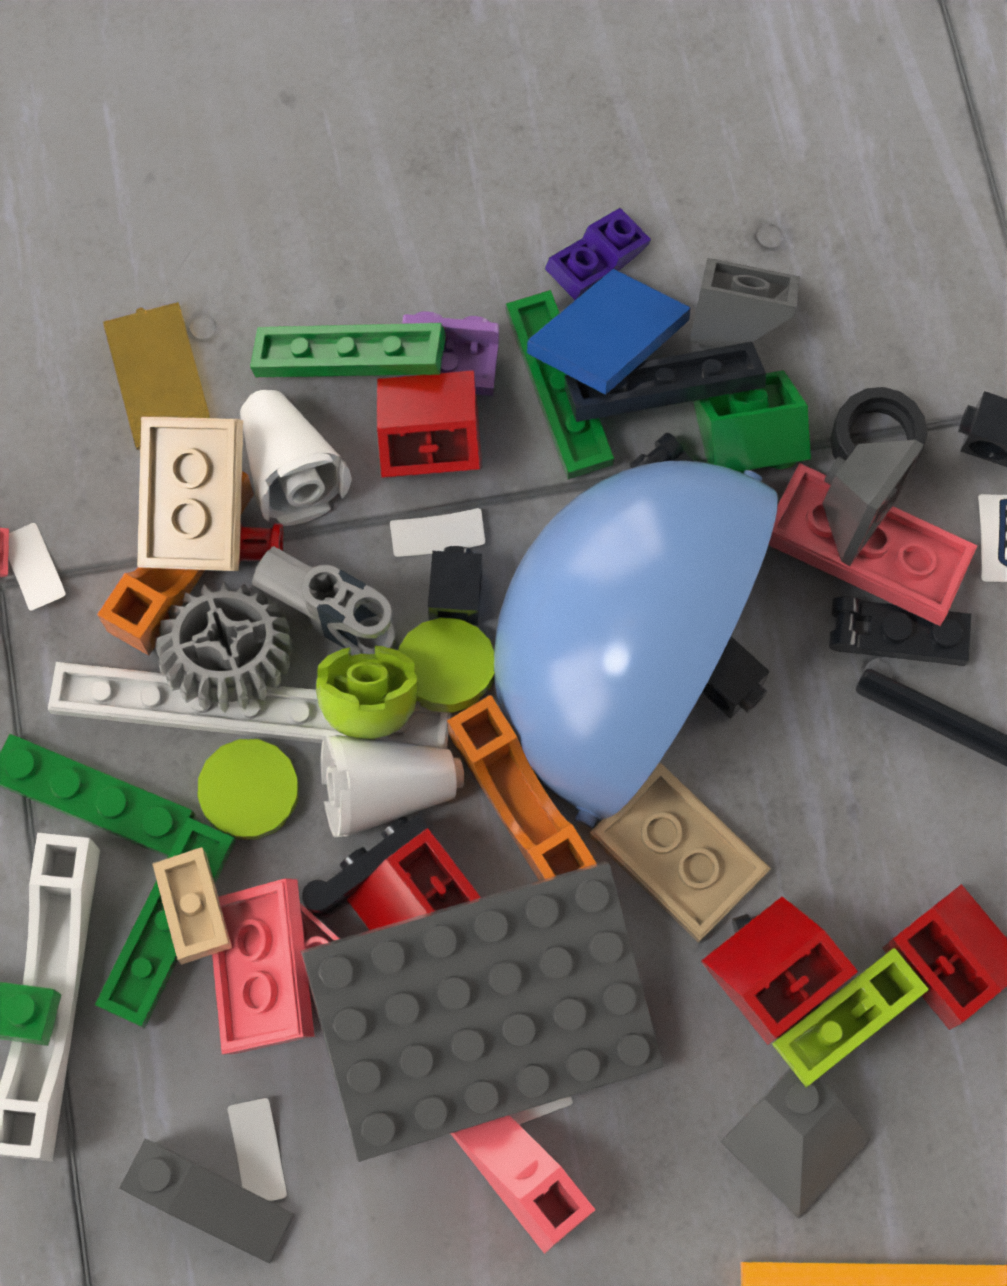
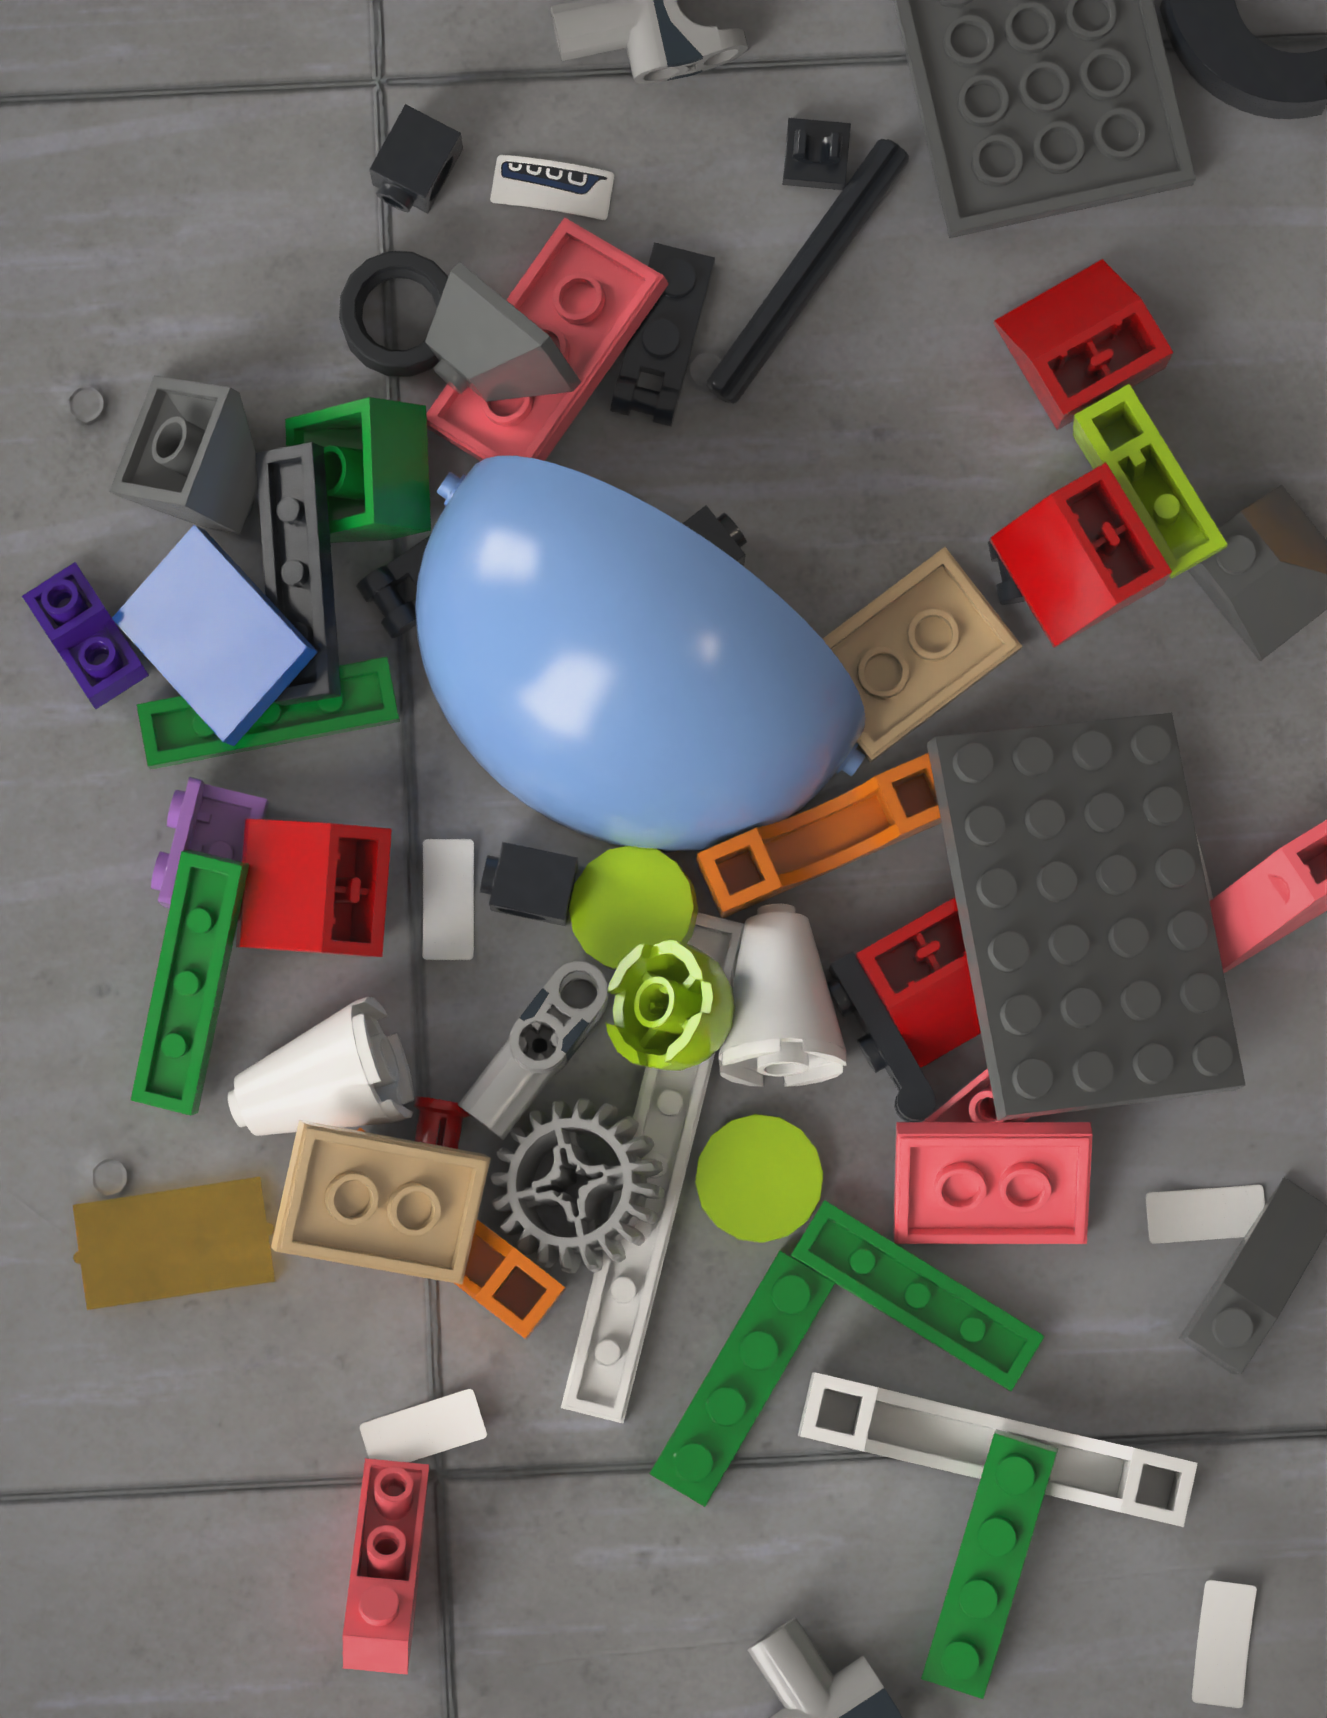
camera: 85 degrees left, 10 degrees up
(191, 905) = (912, 1255): tan hinge -> none

